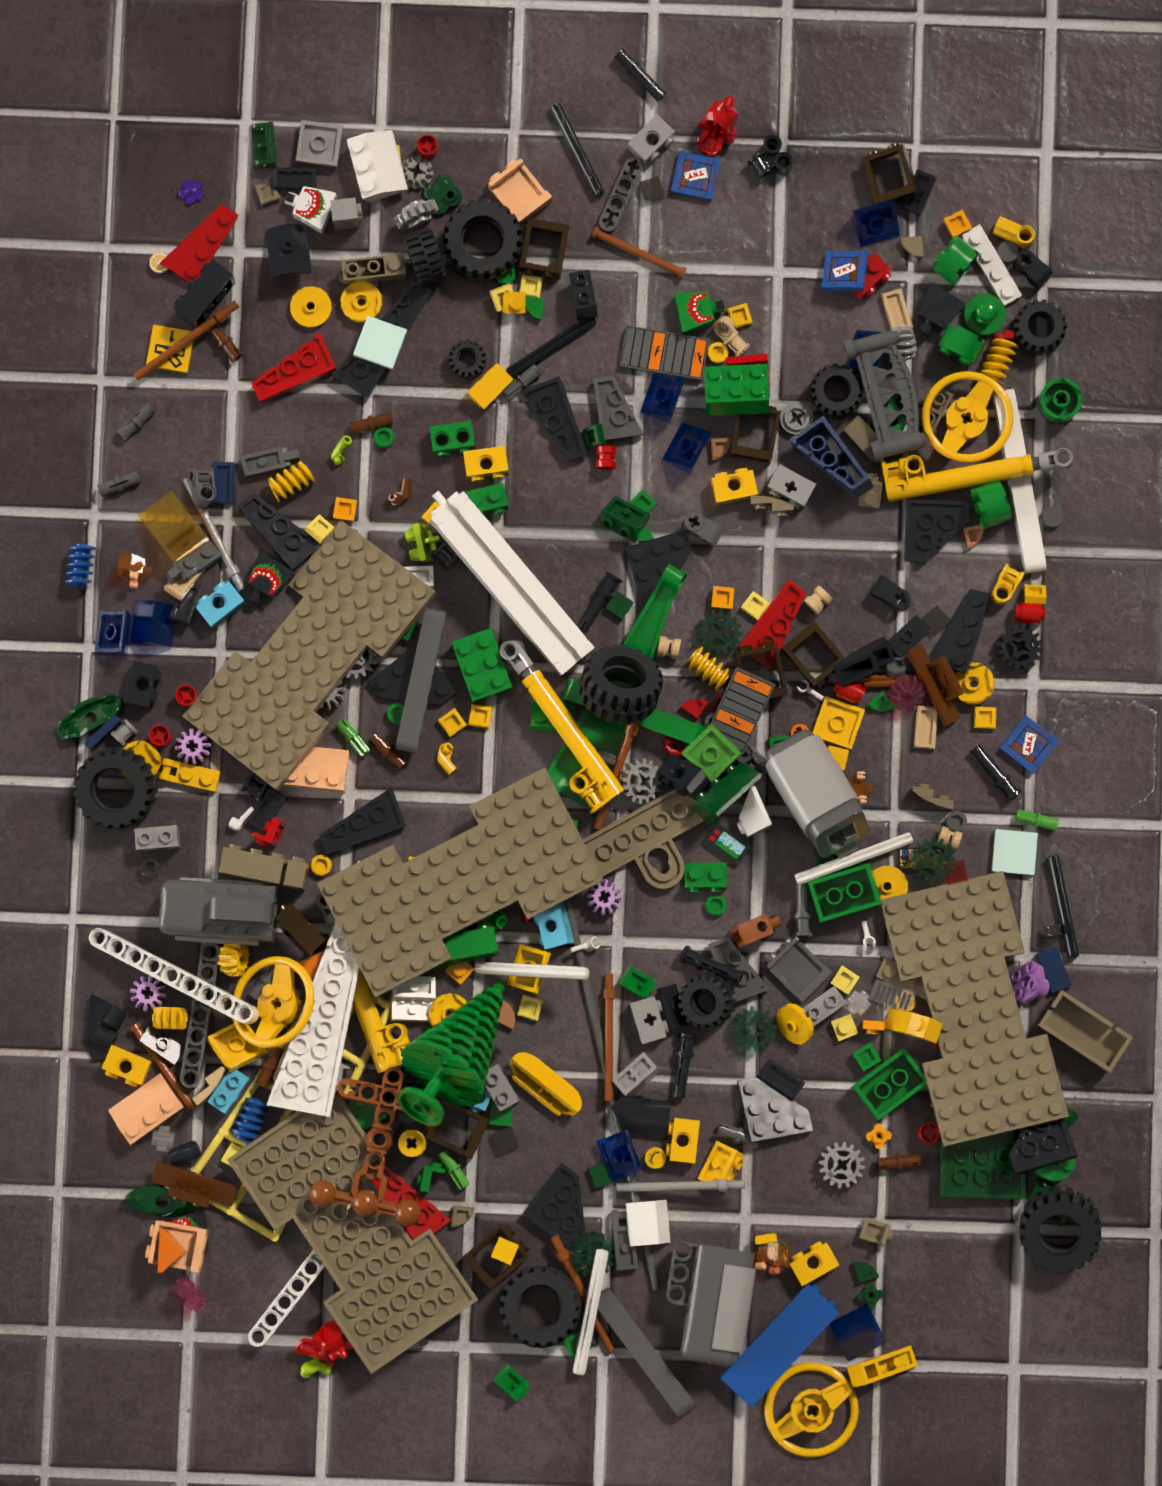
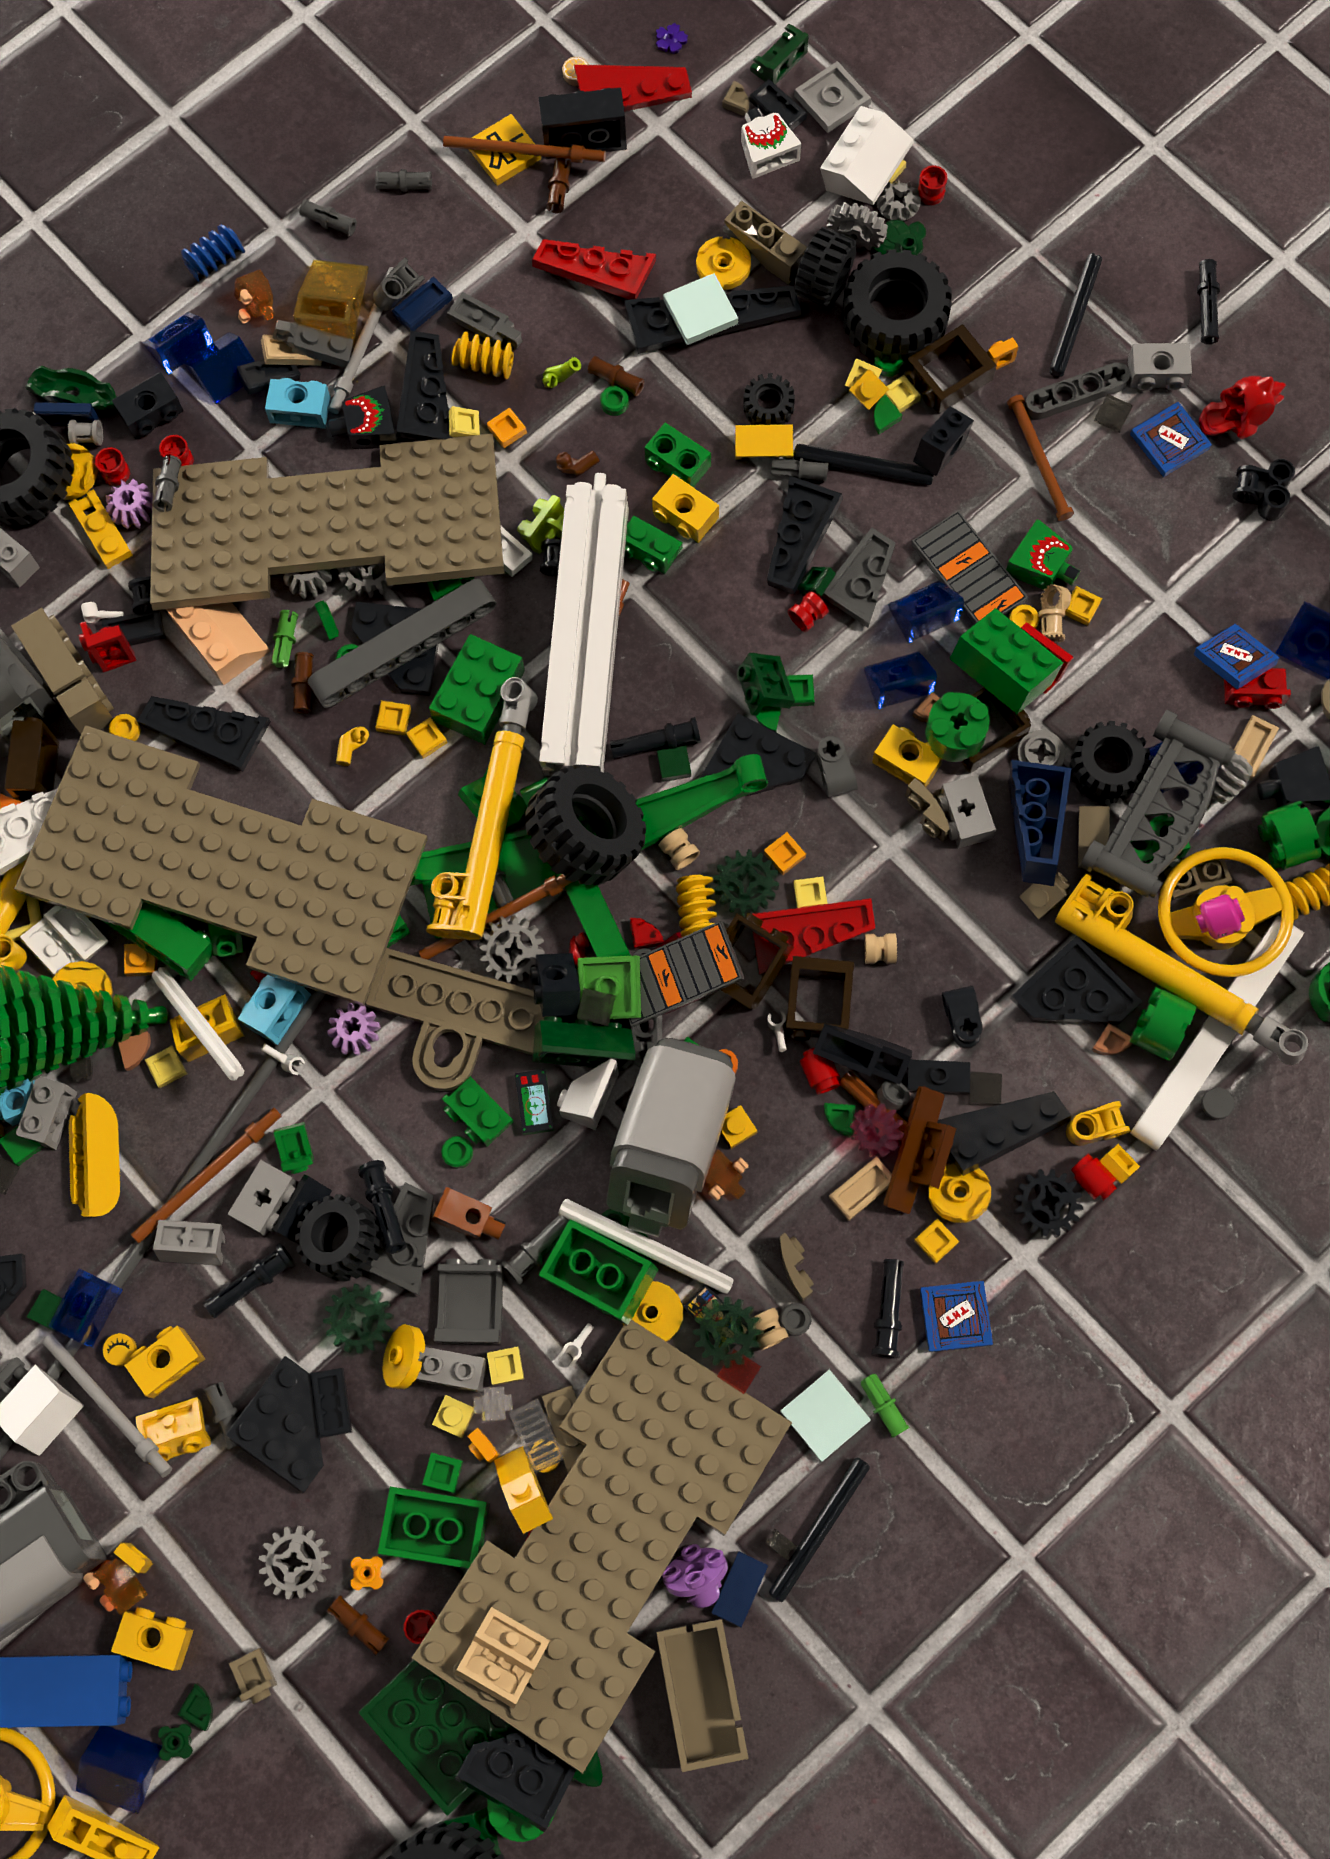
camera: 50 degrees right, 10 degrees down
(206, 717) = (167, 483): none -> dark grey pin
(288, 250) = (703, 156): black shield -> none
(315, 317) = (676, 238): yellow plate -> none
(346, 213) = (790, 168): light grey brick -> none
(363, 705) = (327, 619): none -> green tile
(519, 191) = (980, 298): light nougat panel -> none
(561, 212) = (1003, 352): none -> light orange plate
(644, 1115) = (153, 1290): black panel -> none
(715, 768) = (596, 1006): none -> clear smoke tile
(753, 440) = (961, 711): none -> green brick
(838, 722) = (775, 1093): yellow tile -> none
(969, 425) = (1220, 916): none -> dark pink head
(984, 1104) = (502, 1657): none -> tan slope

